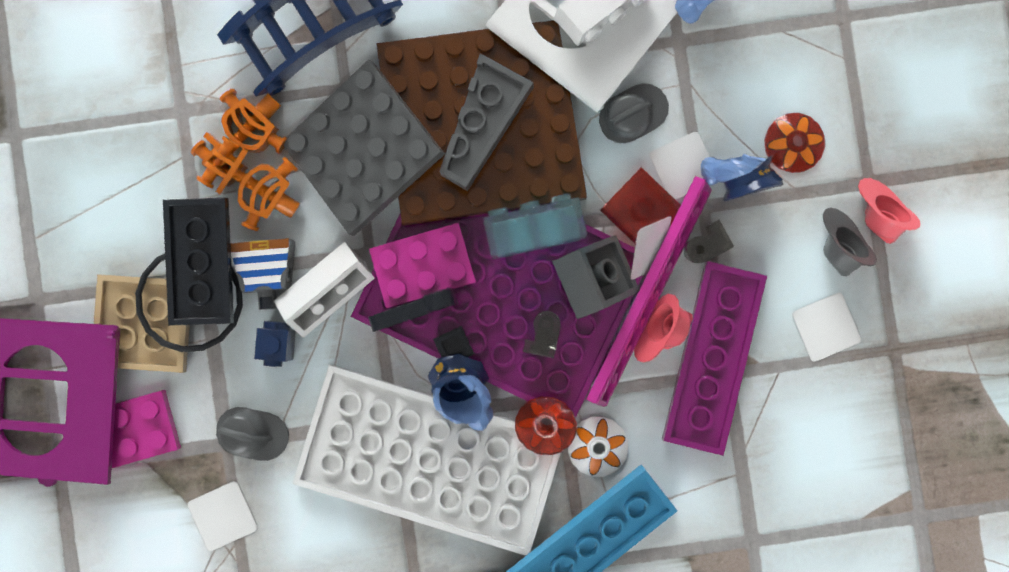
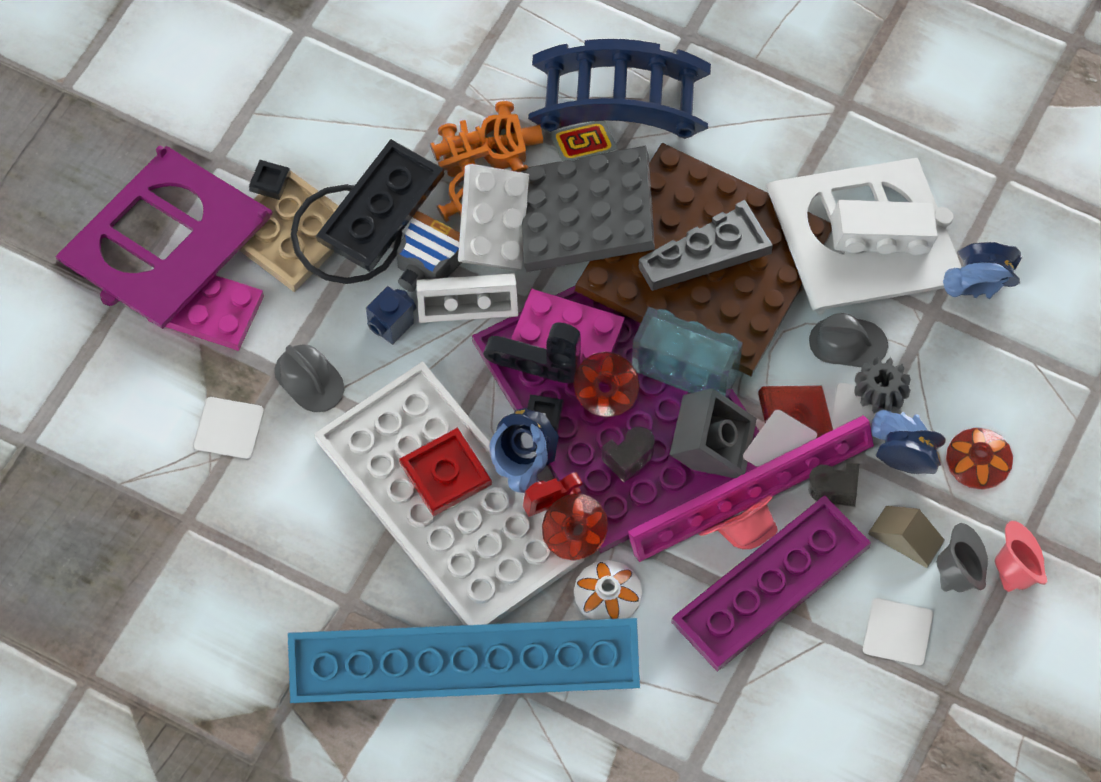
camera: 30 degrees right, 25 degrees down
(93, 296) = (269, 179): none -> black tile
(293, 208) = (493, 217): none -> white plate
(313, 84) = (583, 140): none -> sticker
(414, 446) = (445, 471): none -> red tile
(500, 297) = (615, 372): none -> clear red dish
(503, 417) = (542, 494): none -> red plate
(700, 136) = (869, 385): none -> dark grey gear
(784, 246) = (908, 533): none -> dark tan slope

